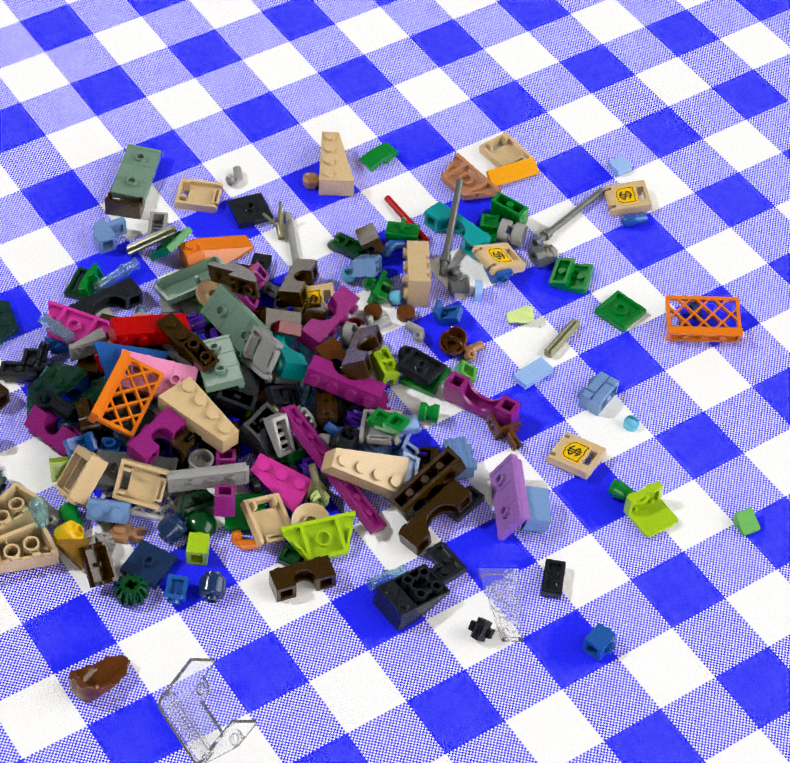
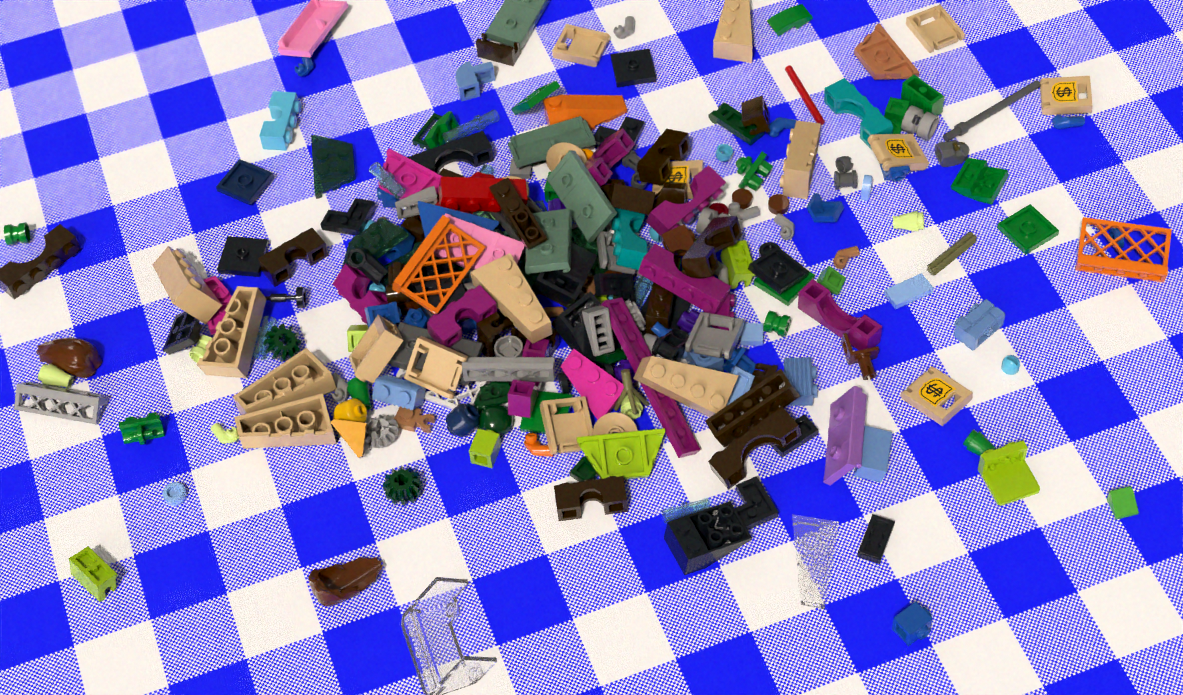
camera: 20 degrees right, 5 degrees up
(39, 510) = (320, 384): clear light blue cone -> none
(41, 357) = (368, 210): black axle -> none
(98, 564) = (370, 452): dark brown hinge -> none
(149, 562) = (430, 458): dark blue plate -> none
(151, 240) = (516, 91): olive axle -> none
(157, 222) = (525, 70): light grey slope -> none
(176, 589) = (450, 491): blue bracket -> none
(197, 322) = (539, 191): dark purple gear -> none
(212, 586) = (490, 494): dark blue head -> none
(236, 276) = (588, 144): dark brown slope -> none
(266, 352) = (601, 241): light grey container -> none
(279, 227) = (662, 83): olive plant -> none
(288, 329) = (636, 209): piece -> none
(291, 235) = (672, 101): light grey bar -> none
(310, 180) = (706, 39): medium nougat tile -> none
(366, 265) = (744, 145): medium blue brick -> none
(386, 422) = (721, 331): green slope -> none
(395, 297) = (771, 185): medium azure hinge -> none
(402, 230) = (794, 108): green hips -> none
(445, 257) = (838, 144): dark grey bar -> none
(453, 341) = (823, 243): reddish brown hair -> none
(481, 629) = (778, 588): black gear -> none
(513, 172) = (938, 52): light orange tile -> none
(620, 165) = (1066, 56): light blue tile -> none

